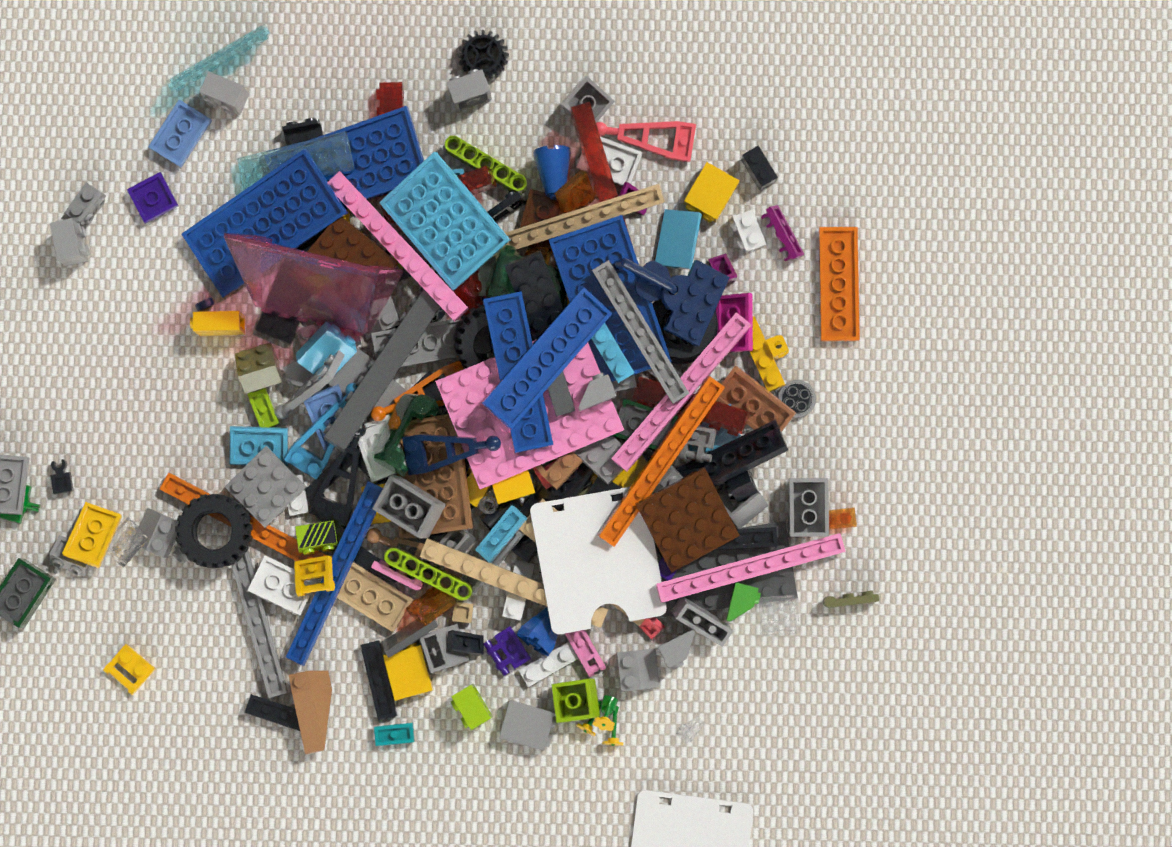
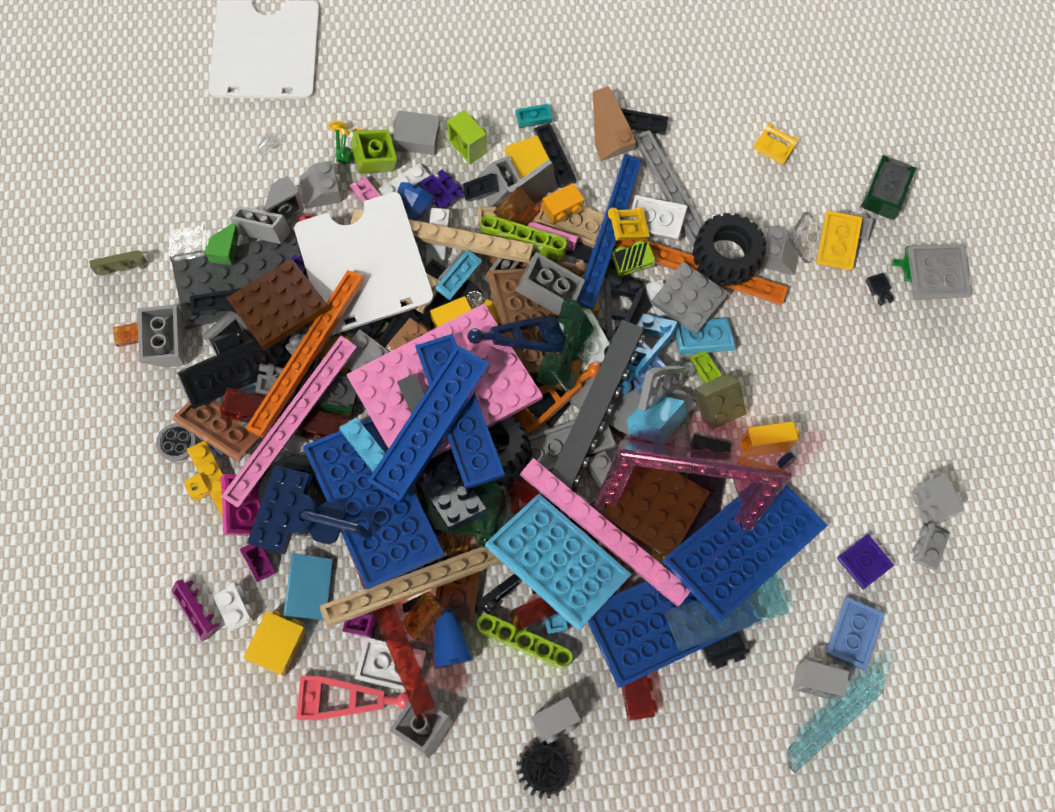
camera: 165 degrees right, 15 degrees down
(379, 610) = (563, 203): none -> light orange brick
(597, 392) = (375, 398): light grey slope -> none
(640, 331) = (337, 469): light grey plate -> none
(750, 567) = (216, 272): bright pink plate -> none
(759, 168) = (222, 677): black brick -> none
(839, 284) = (132, 564): orange plate -> none

